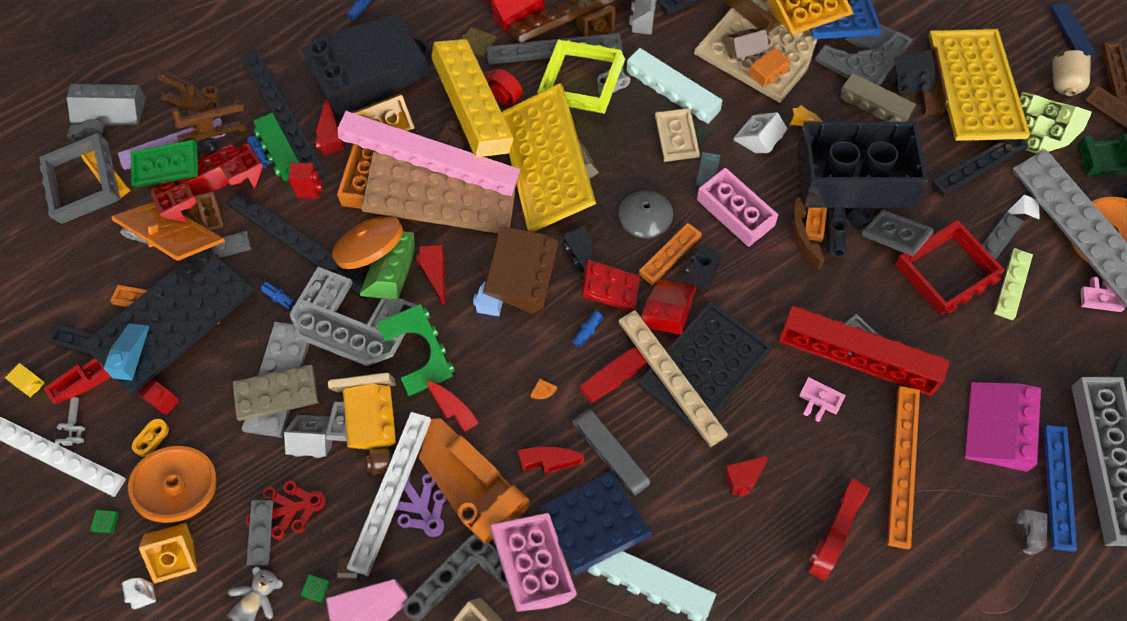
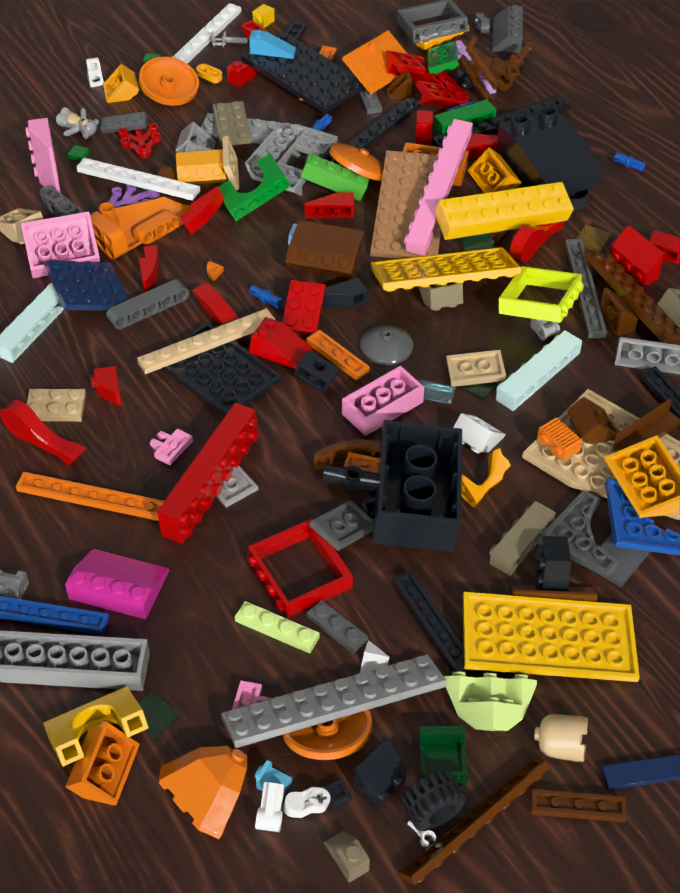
camera: 90 degrees right, 15 degrees down
(778, 532) = (57, 404): none -> tan plate

